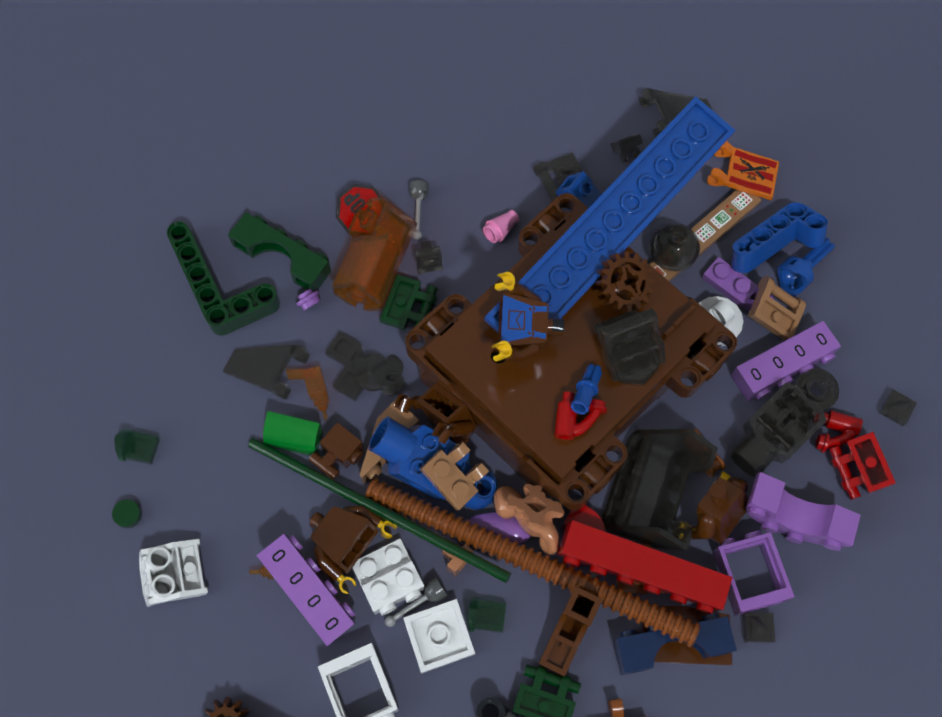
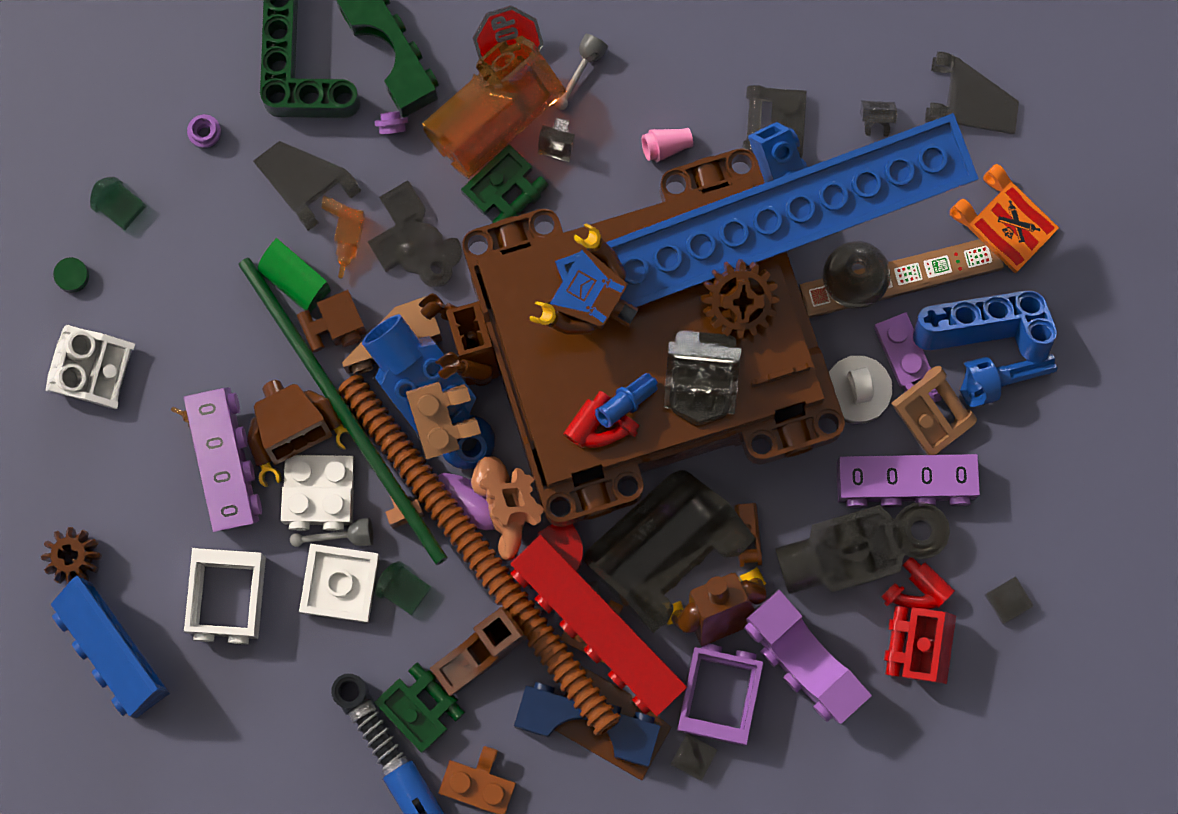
camera: 30 degrees right, 10 degrees up
(174, 361) = (197, 124): none -> medium lavender plate

